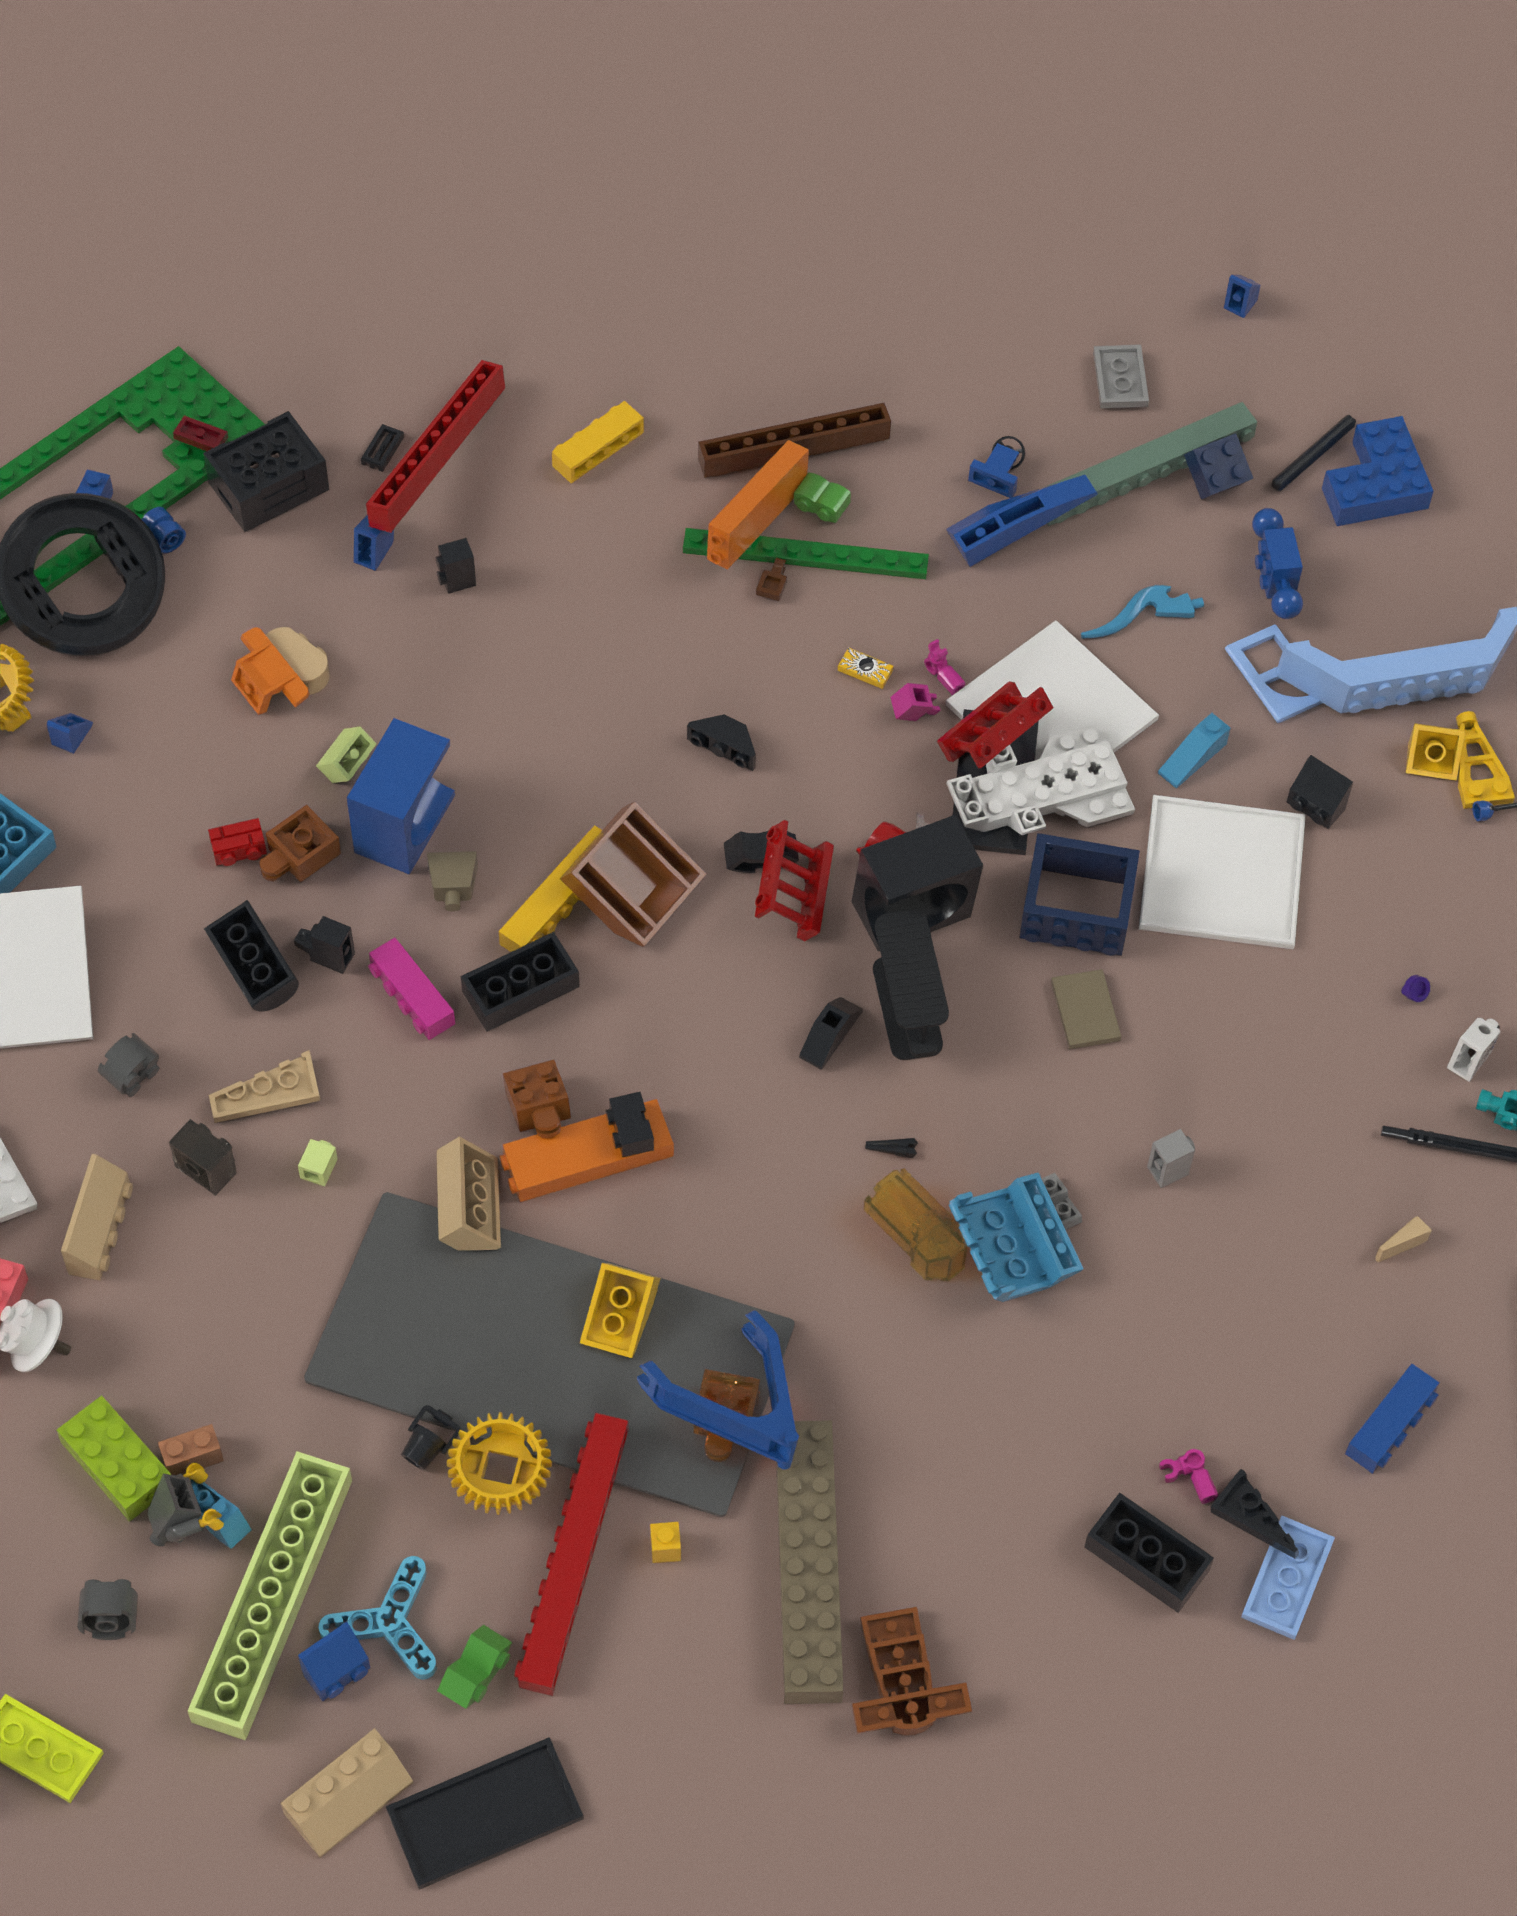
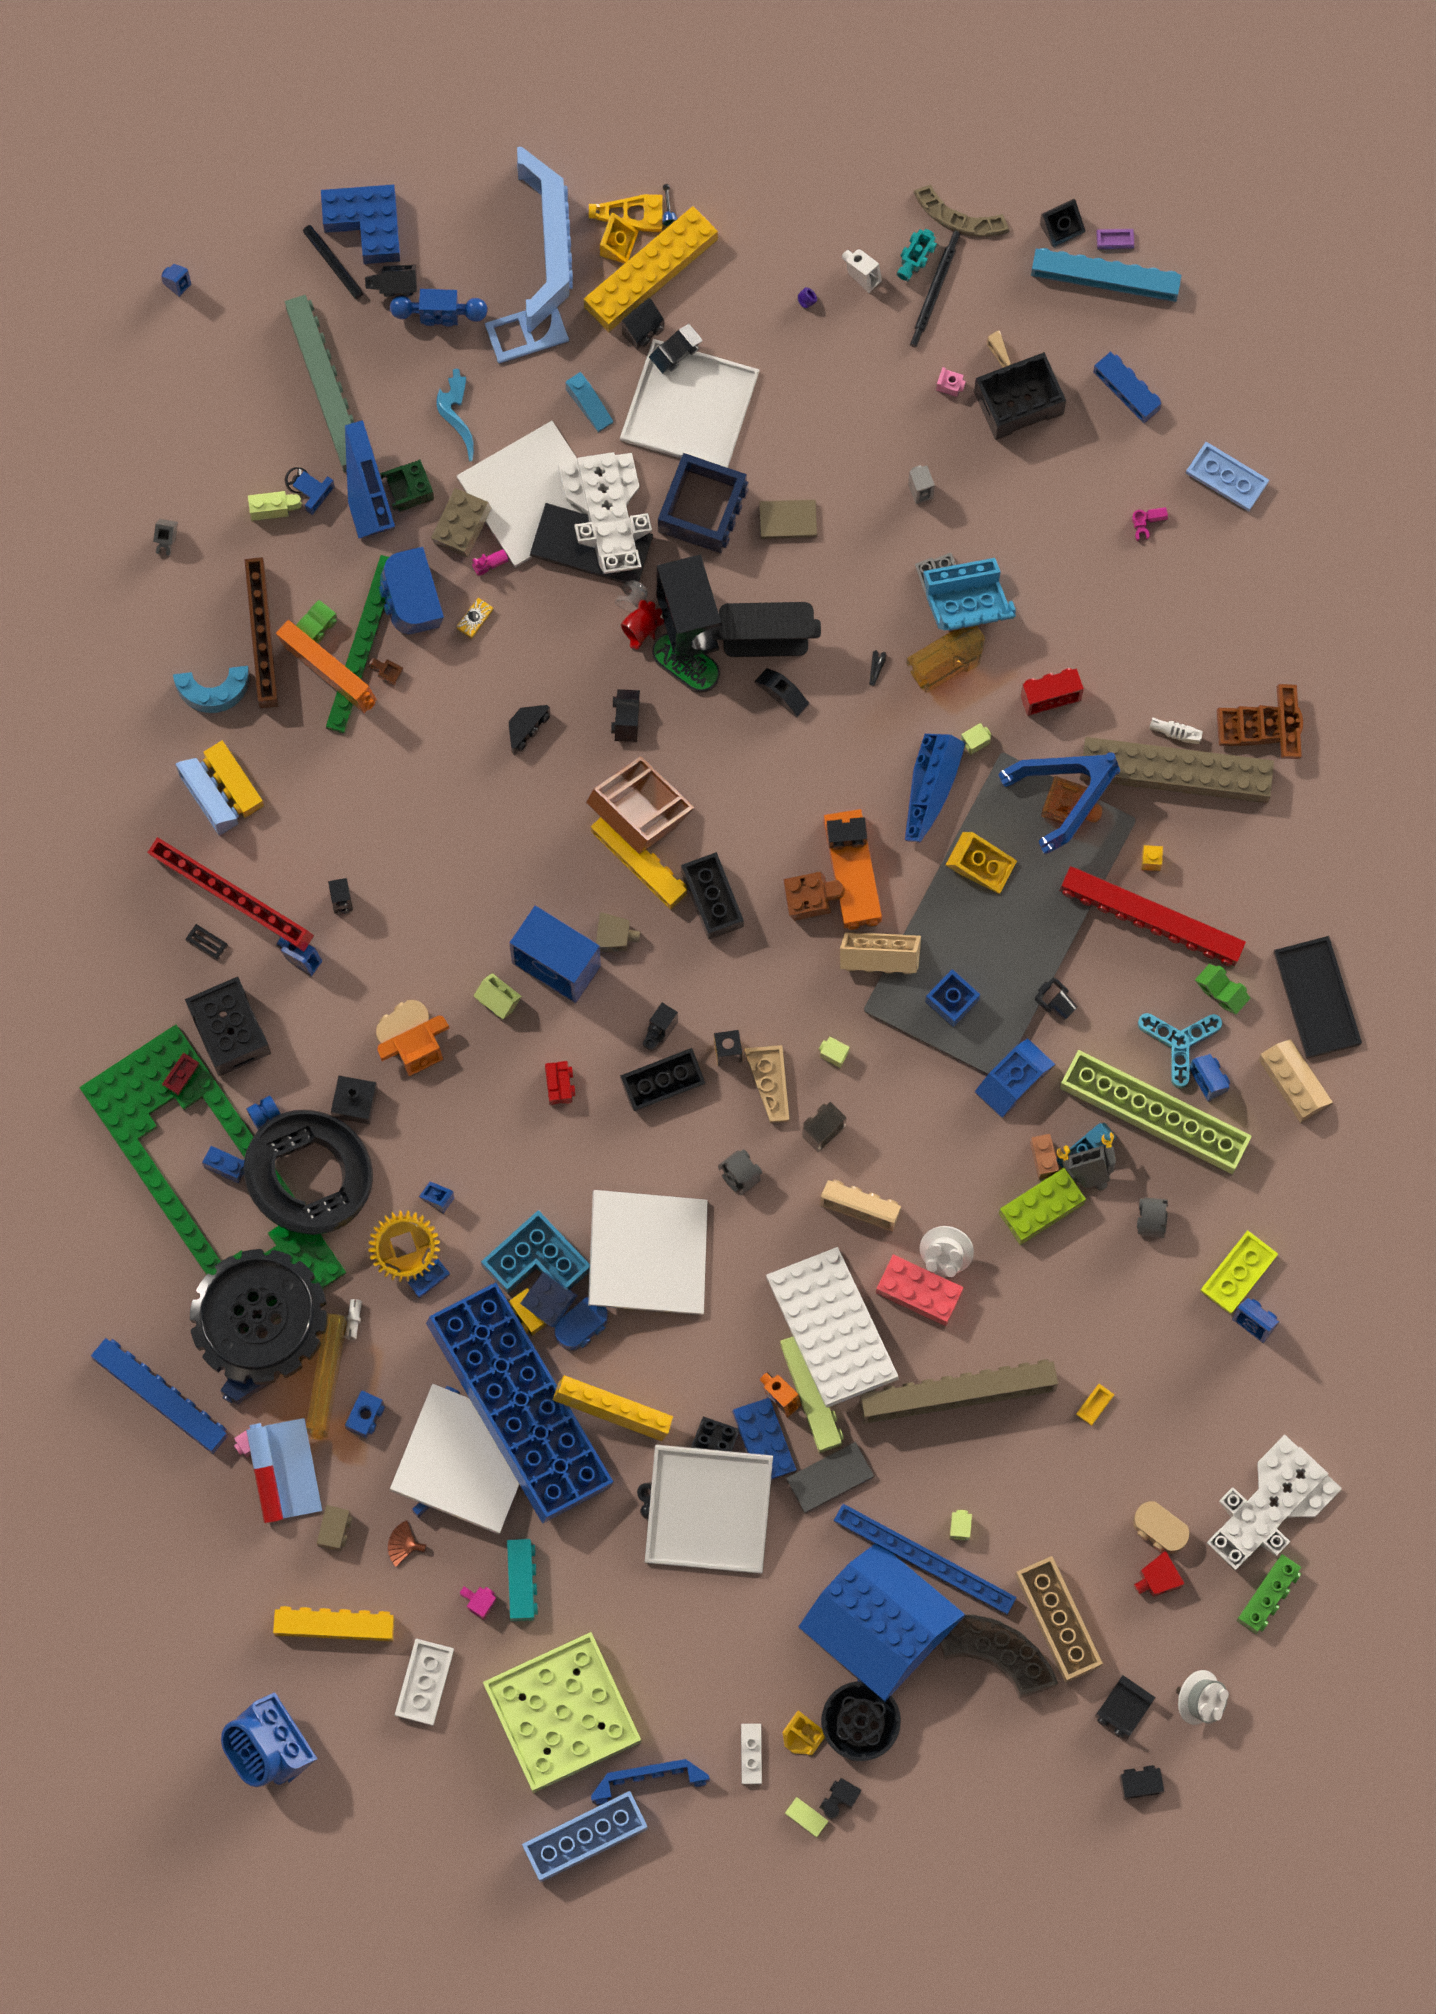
camera: 80 degrees left, 15 degrees up
(189, 621) = (354, 1099): none -> black brick
(299, 846) = (571, 1039): dark orange brick -> none
(306, 1026) = (723, 1052): none -> black piece
(310, 1397) = (1014, 1077): none -> blue slope
(408, 1293) = (952, 998): none -> blue brick
(411, 989) = (703, 973): dark pink brick -> none
(470, 1462) = (1094, 938): yellow piece -> none
(567, 411) = (207, 795): none -> light blue slope
(700, 412) = (217, 698): none -> dark azure brick
(731, 1235) = (932, 782): none -> blue wedge
(807, 1283) = (976, 738): none -> yellowish green brick
(815, 880) = (663, 683): red fence -> none
(842, 927) = (696, 672): none -> tile
(870, 1555) = (1177, 731): none -> white hinge
(879, 579) = (410, 592): none -> blue brick
(894, 1368) = (1051, 691): none -> red brick
(904, 327) = (165, 534): none -> dark grey brick
(913, 702) = (517, 588): dark pink brick -> none
(967, 428) = (272, 505): none -> yellowish green hinge
(989, 628) = (461, 522): none -> dark tan brick
(995, 724) = (544, 534): red fence -> none
(1029, 572) = (408, 485): none -> dark green piece
(1120, 376) = (237, 384): light grey plate -> none
(1148, 1552) = (1202, 557): black brick -> none
(1218, 466) = (342, 330): dark blue piece -> none
(1245, 1509) = (1179, 491): black wing -> none
(1294, 835) = (676, 348): none -> black brick
(1303, 512) = (394, 280): none -> black hinge
(1338, 1182) = (947, 387): none -> bright pink brick
(1357, 1261) = (1012, 383): none -> black container
(1408, 797) = (651, 268): none -> yellow brick

